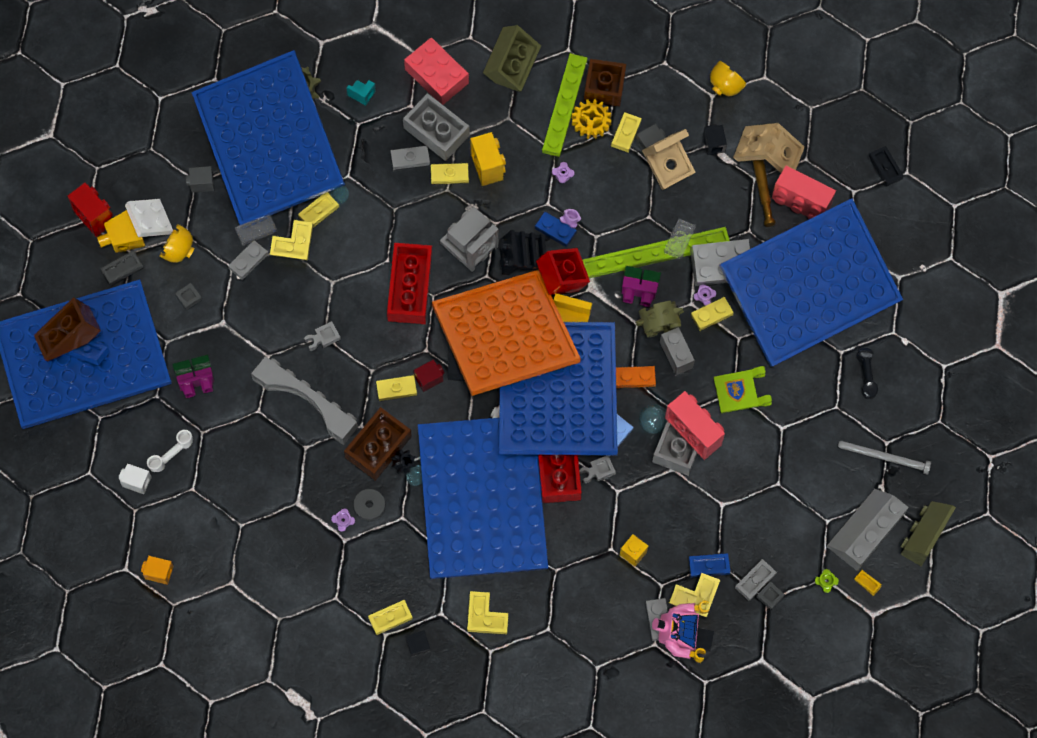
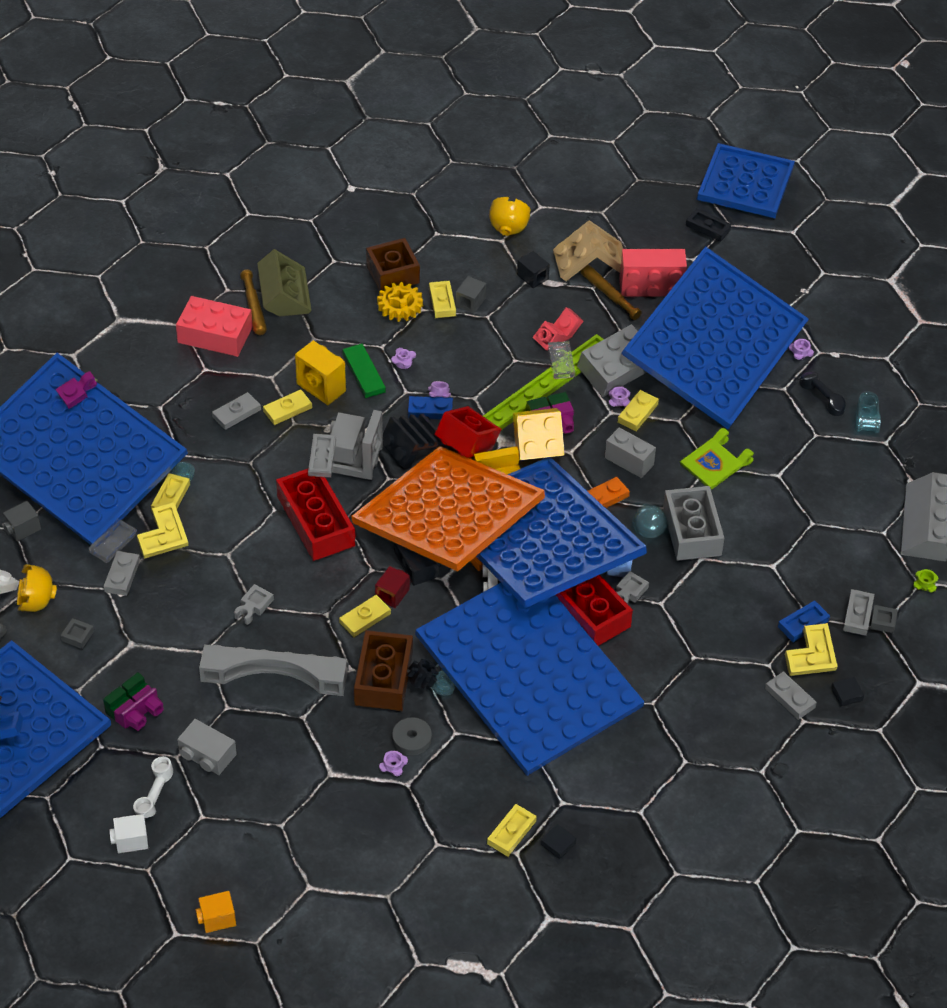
camera: 30 degrees left, 20 degrees down
(223, 438) = (206, 747): none -> light grey brick
(288, 91) = (74, 392): none -> magenta plate
(361, 92) = (146, 378): teal panel -> none
(436, 127) = (247, 369): light grey brick -> none
(437, 240) = (322, 455): none -> light grey plate
(477, 71) = (257, 316): none -> pearl gold piece
(482, 620) = (610, 783): light yellow plate -> none
(526, 169) = (364, 370): none -> green tile
(564, 105) = (364, 304): lime plate -> none
(614, 301) = (538, 433): none -> yellow brick
(633, 550) = (720, 642): yellow brick -> none
(660, 317) = (594, 428): olive brick -> none
(669, 149) = (497, 290): tan bracket -> none
(679, 630) = (822, 688): torso -> none
(693, 208) = (560, 331): none -> coral slope
(695, 425) = (704, 490): coral brick -> none
(883, 320) = (801, 349): none -> lavender plate
(884, 414) = (868, 413): none -> clear light blue piece
(886, 456) = (938, 443): light grey bar -> none
(948, 136) = (746, 180): none -> blue plate

